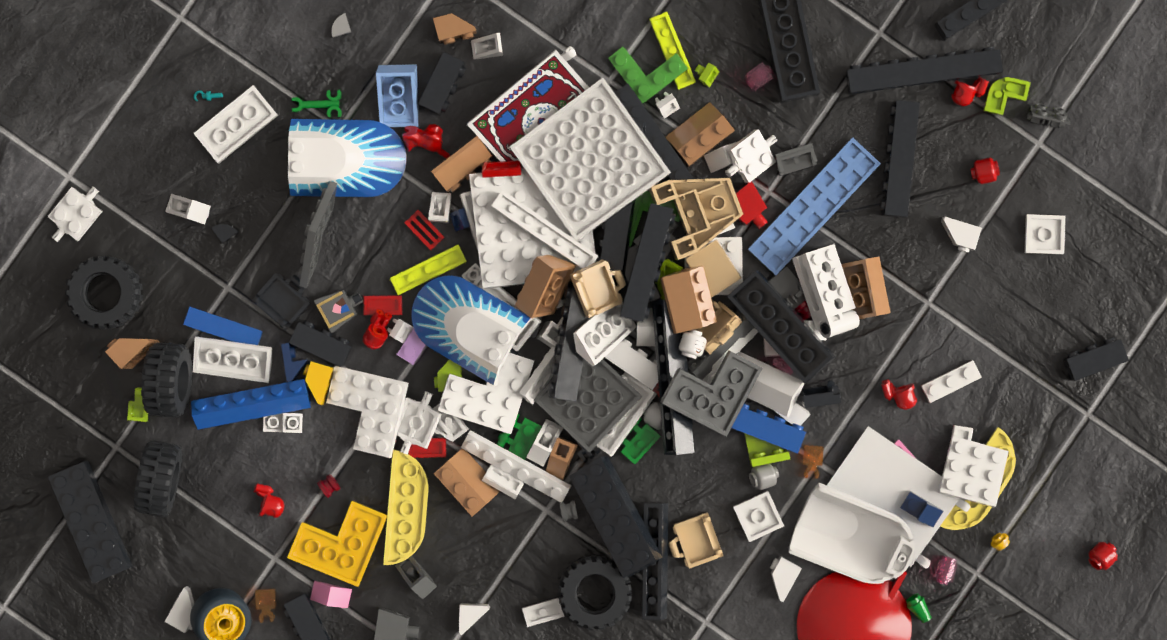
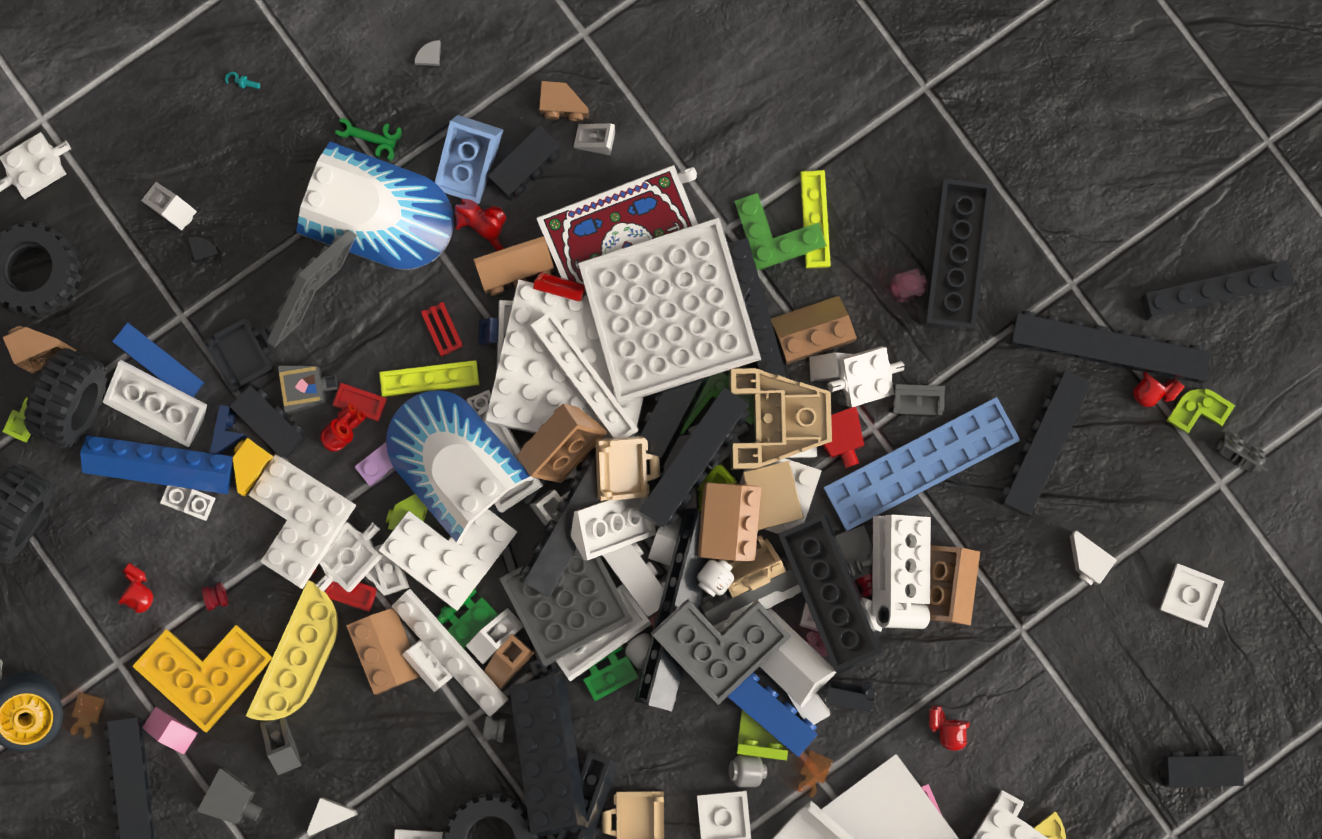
camera: 20 degrees right, 5 degrees down
(235, 124) = (262, 126): white plate -> none
(400, 331) = (369, 439): white tile -> none
(440, 207) = (469, 309): white slope -> none
(539, 378) = (515, 555): white plate -> none
(667, 105) = (786, 281): white tile -> none
(707, 74) = (847, 261): lime tile -> none
(951, 381) = (1016, 735): white plate -> none
(985, 170) = (1144, 493): red head -> none

